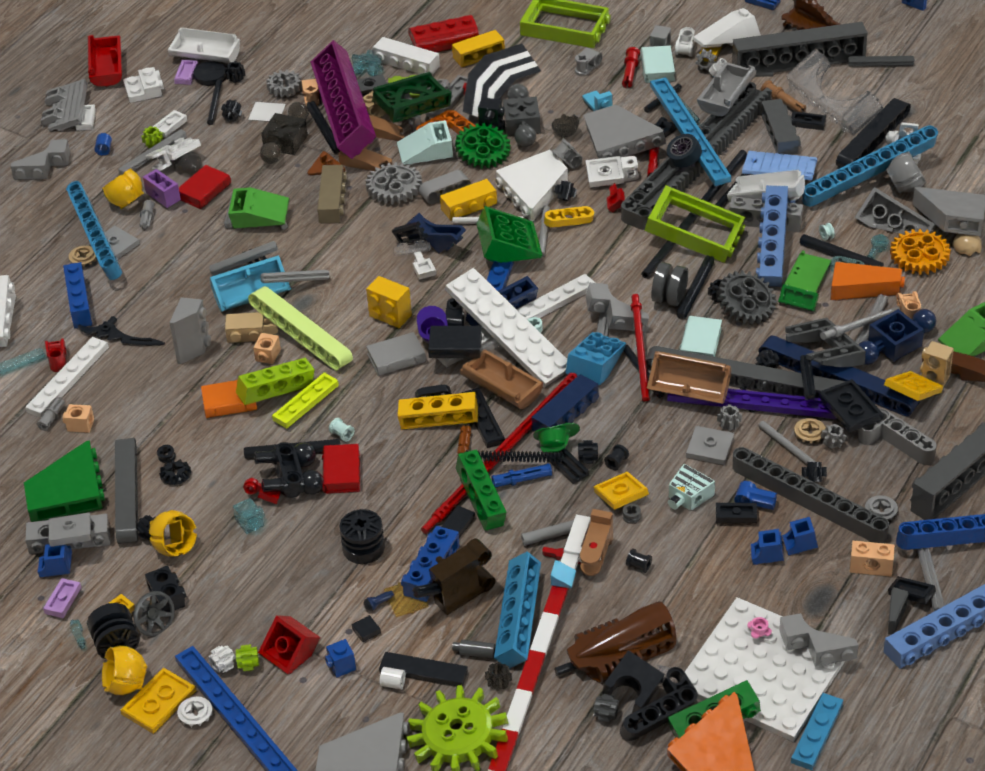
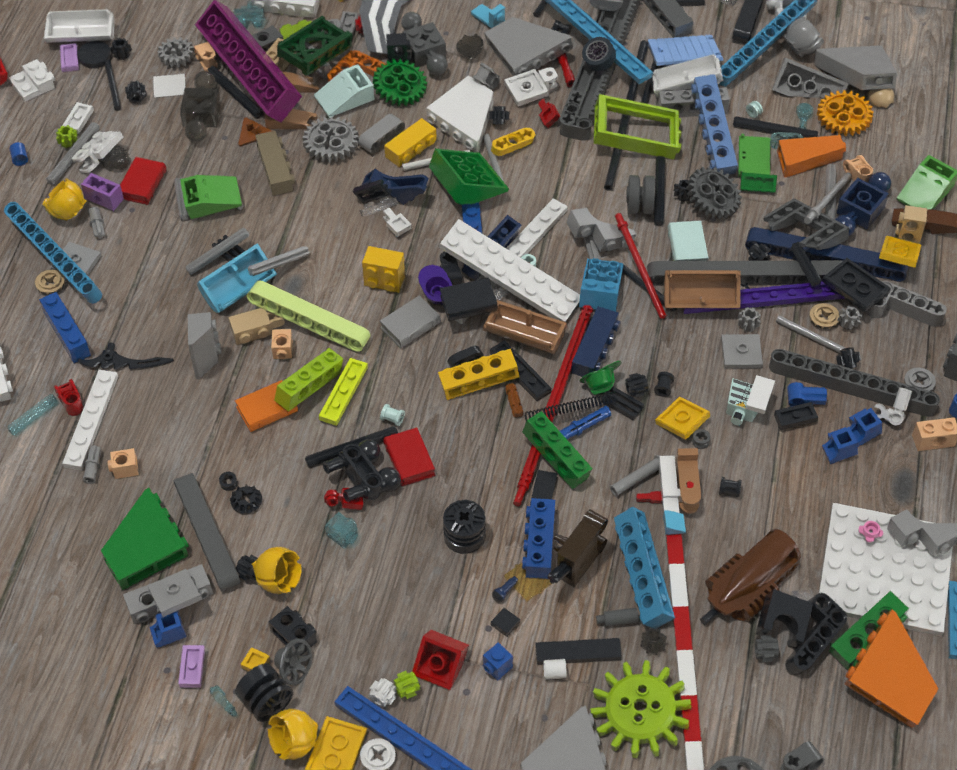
camera: 20 degrees left, 10 degrees up
(703, 482) = (760, 394): none -> white tile
(839, 533) = (901, 402): none -> white bar

